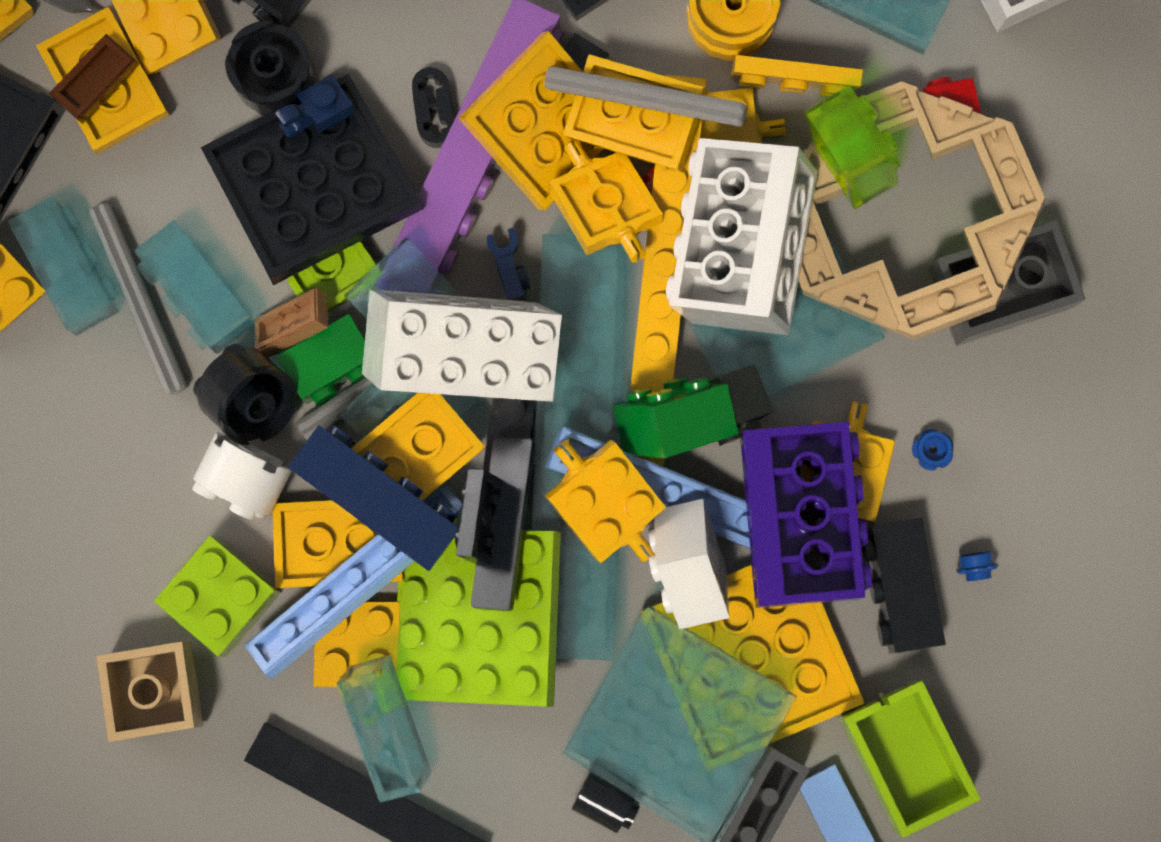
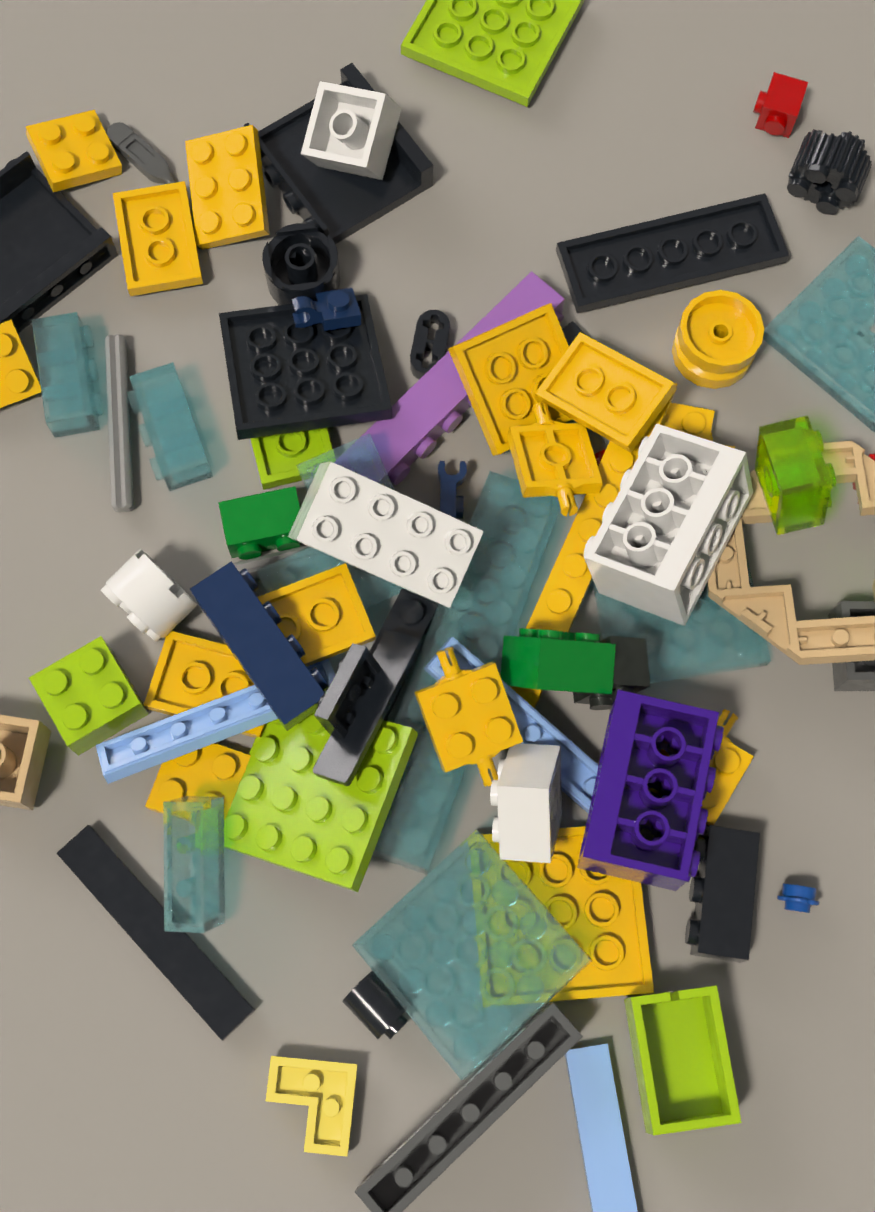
camera: 15 degrees right, 10 degrees down
(94, 78) = (150, 231): reddish brown tile -> none
(246, 394) = (179, 526): black brick -> none
(291, 322) = (242, 479): medium nougat plate -> none
(646, 96) = (621, 376): light grey axle -> none
(793, 76) = (748, 403): yellow plate -> none
(943, 445) = (797, 777): blue plate -> none

